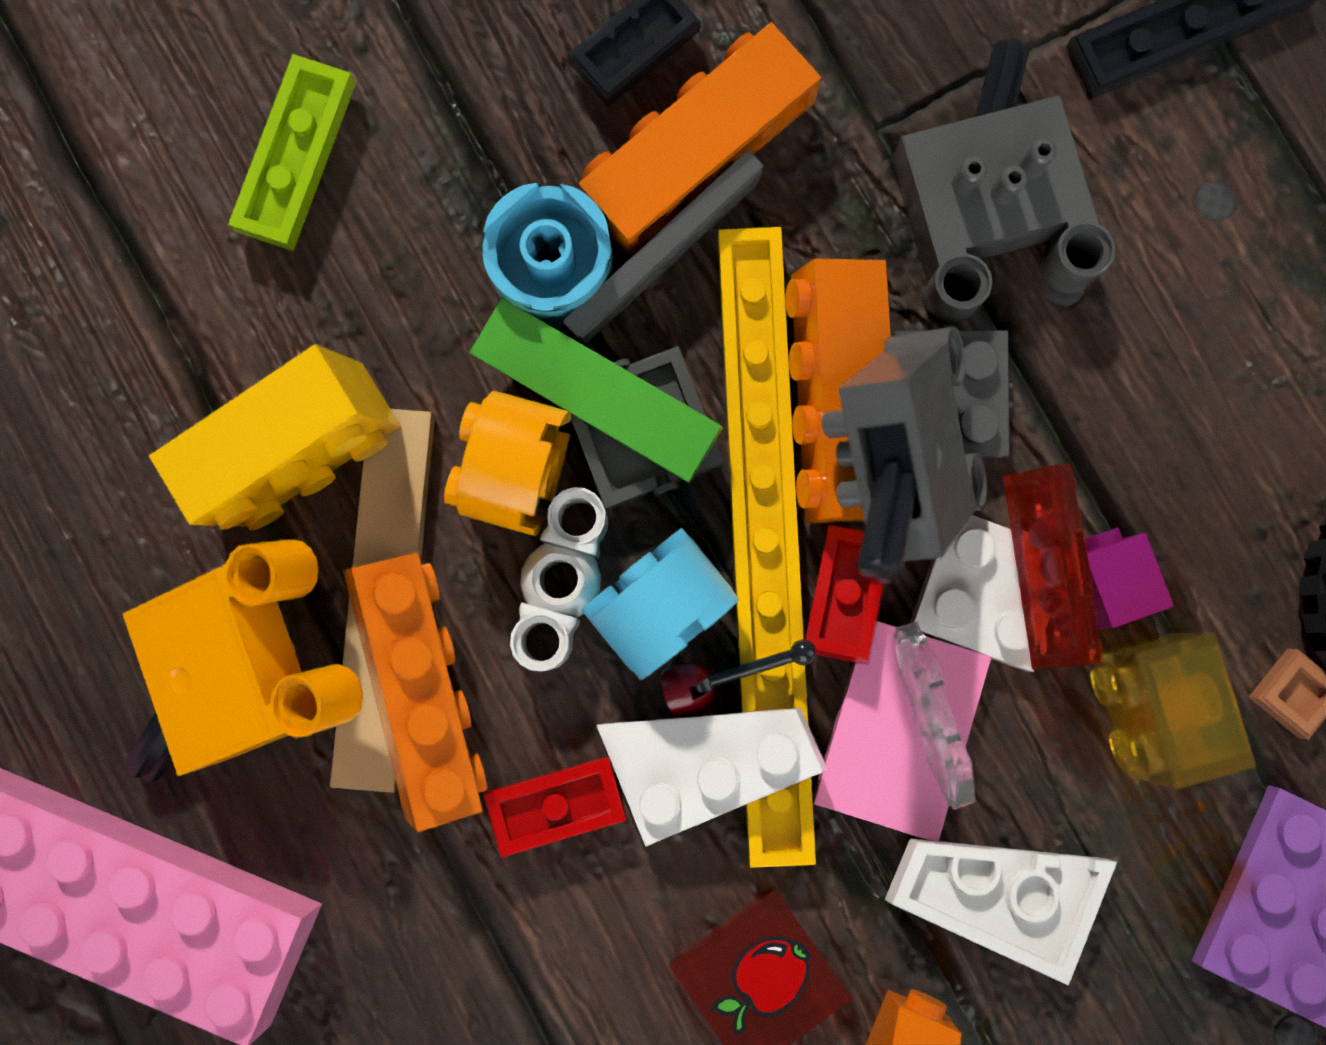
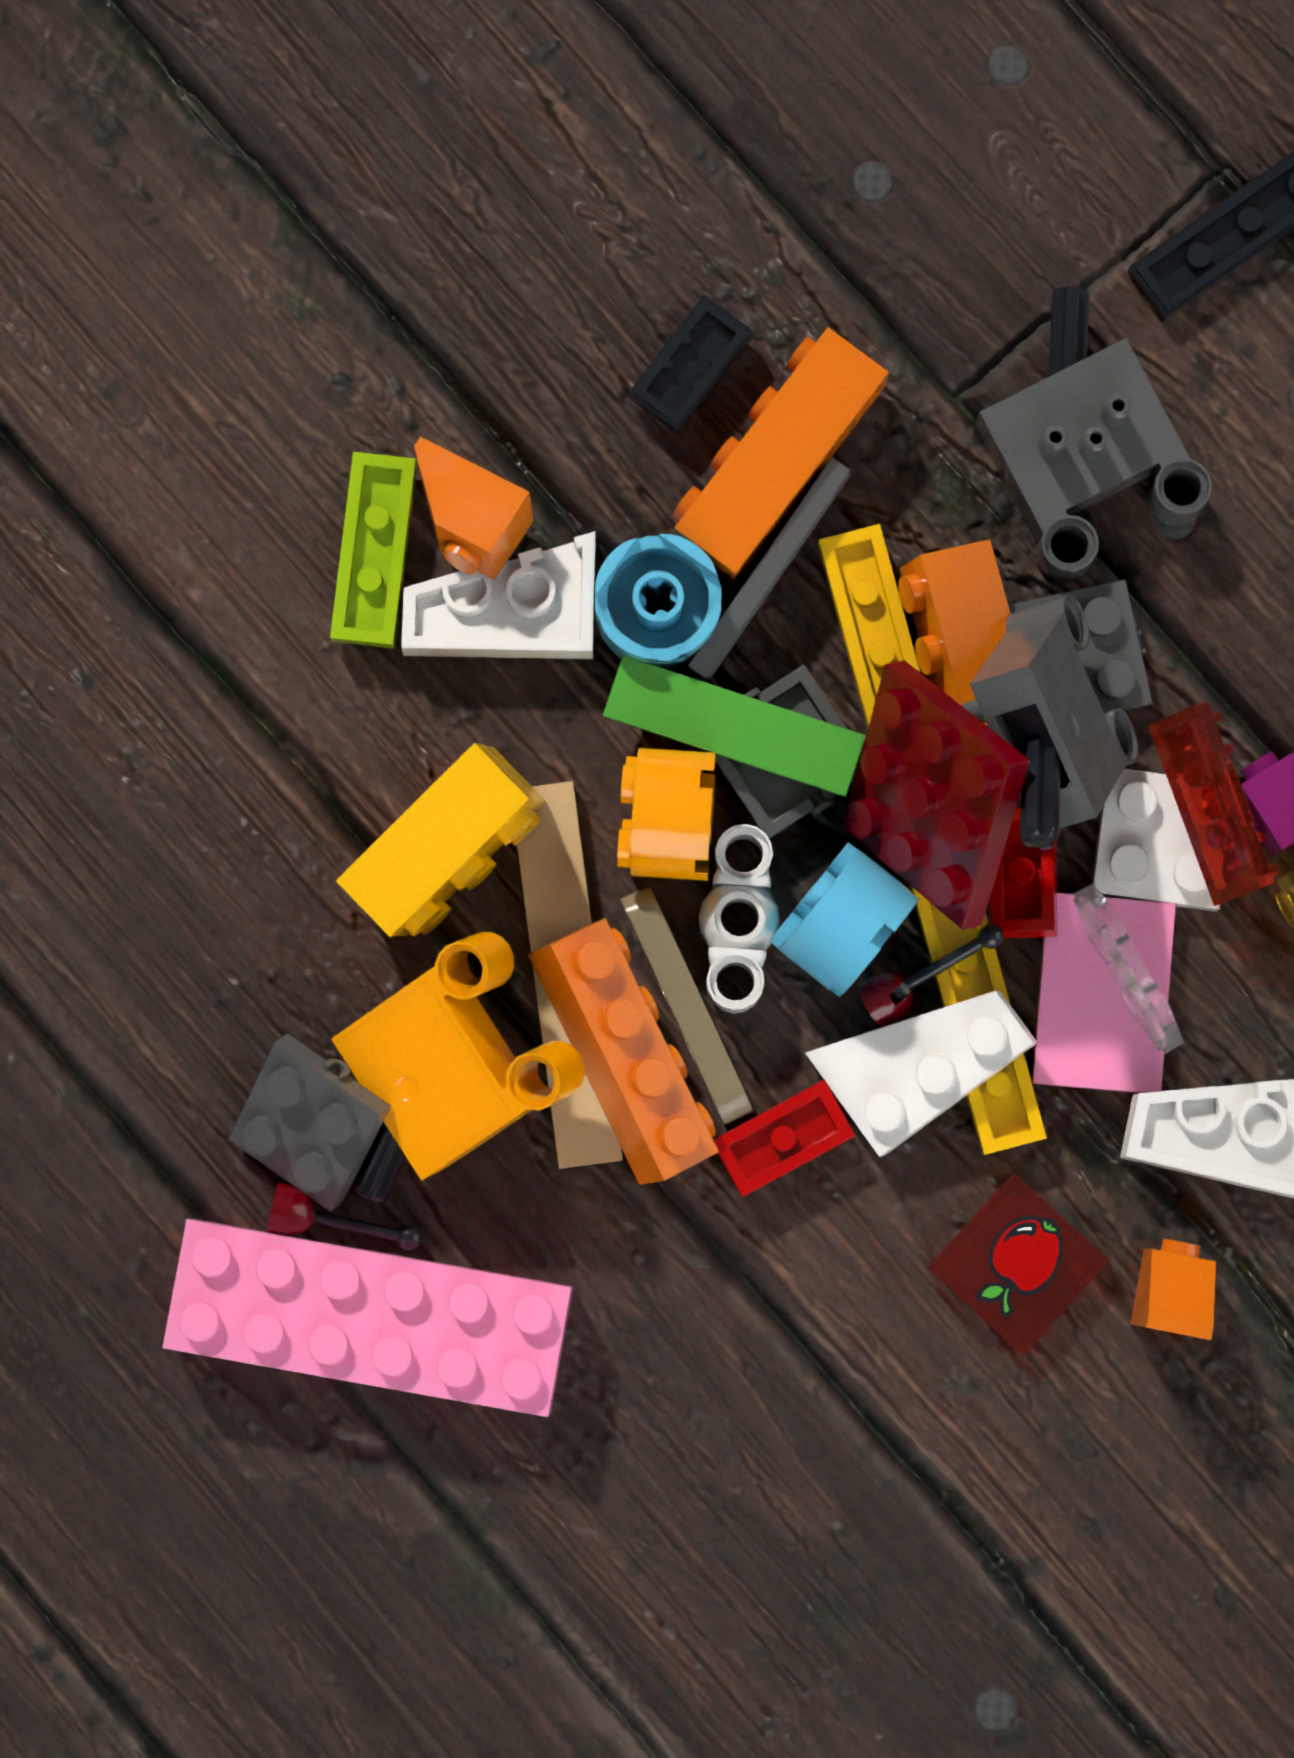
camera: 10 degrees left, 0 degrees up
(63, 770) = (295, 1212): none -> hinge
(87, 691) = (309, 1121): none -> dark grey plate
(390, 130) = (472, 510): none -> orange slope
(403, 236) = (531, 610): none -> white wing
(490, 654) = (686, 1005): none -> dark tan beam
(780, 498) = (935, 794): none -> dark red plate

